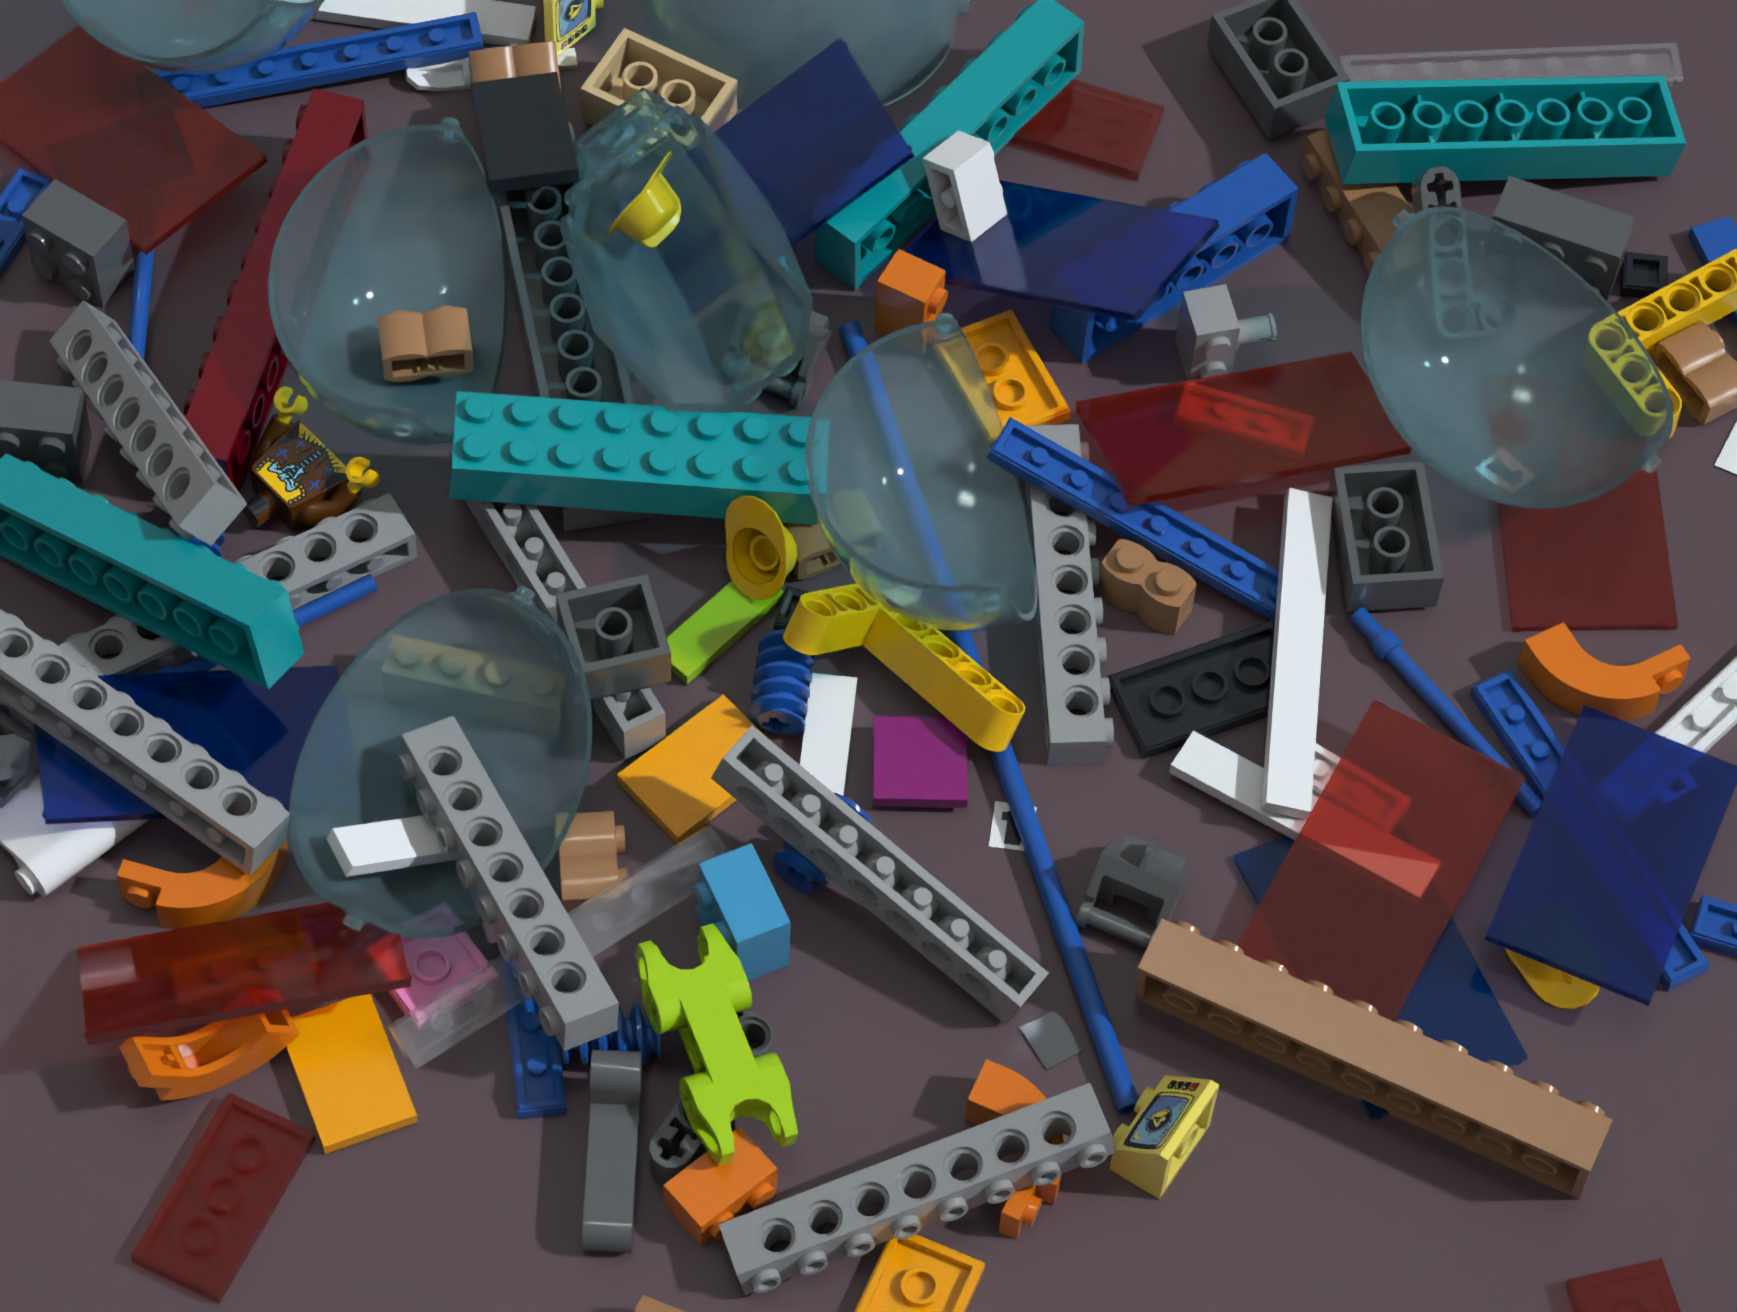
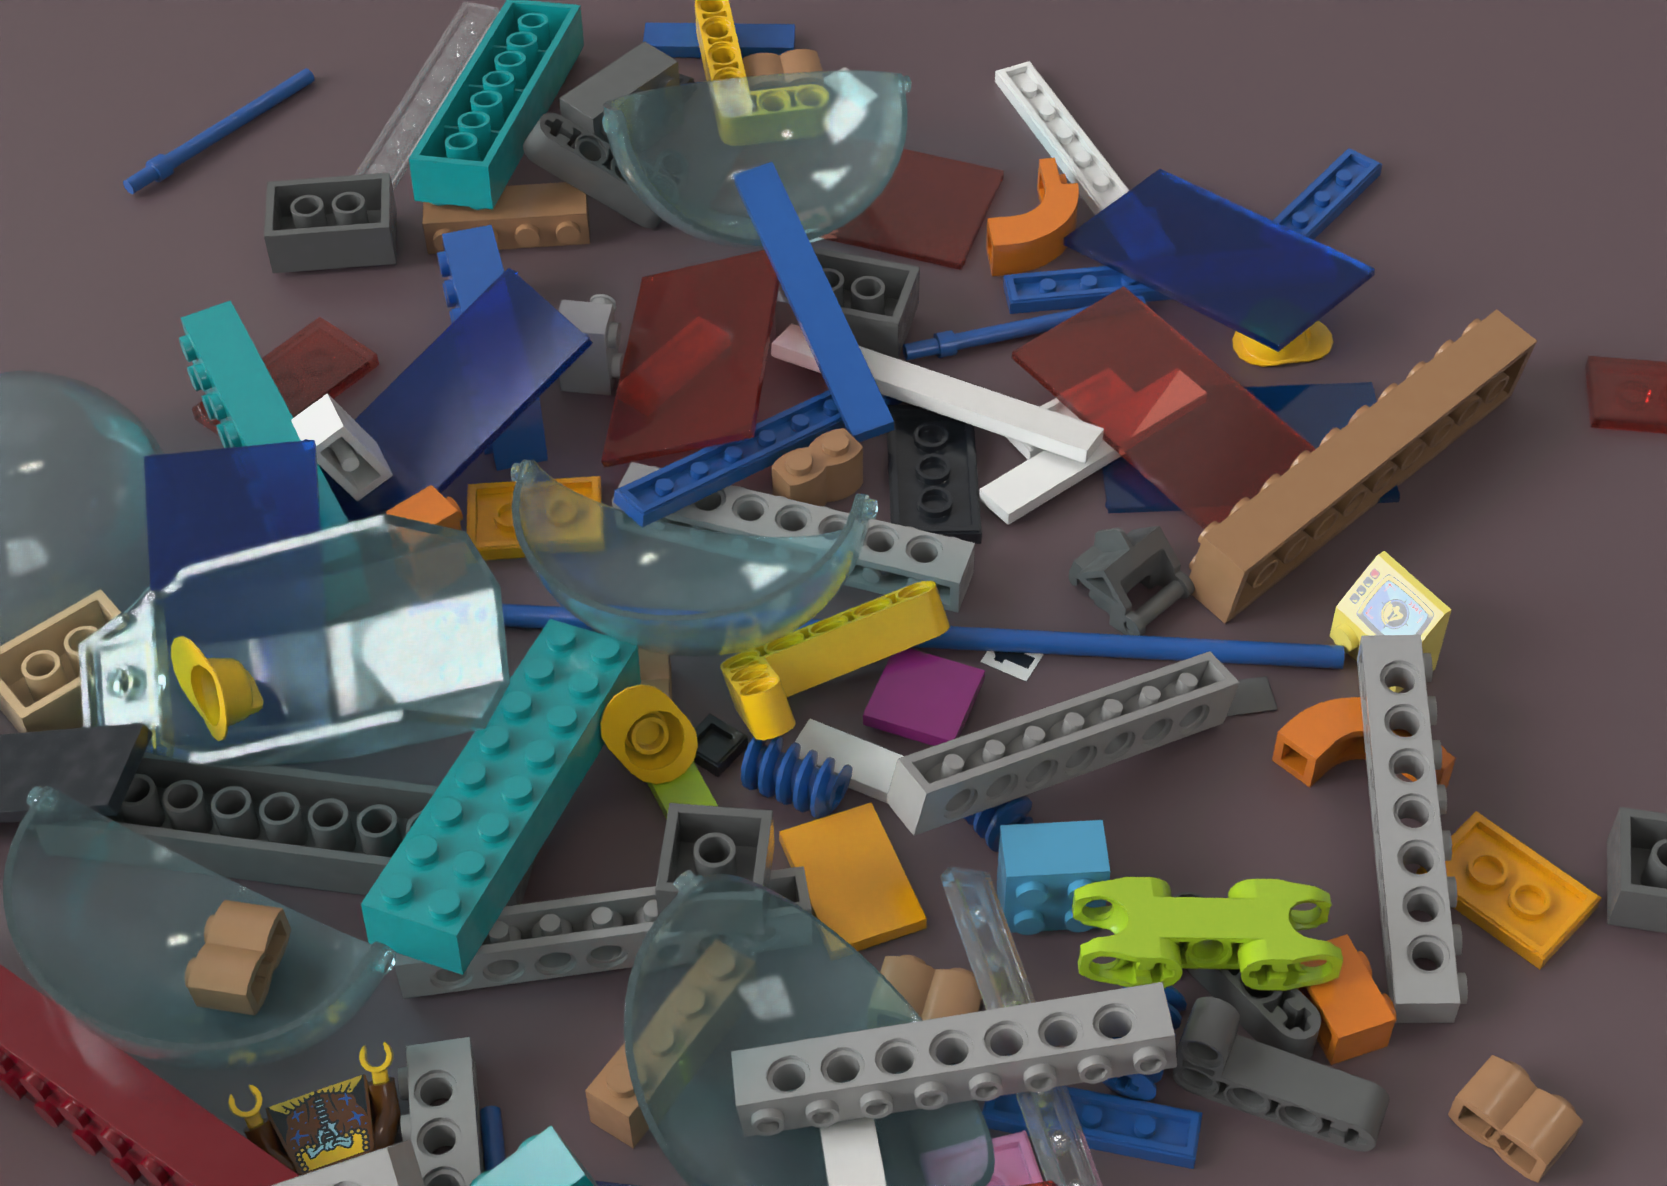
camera: 65 degrees left, 10 degrees down
(1341, 496) = (814, 303): none -> blue tile

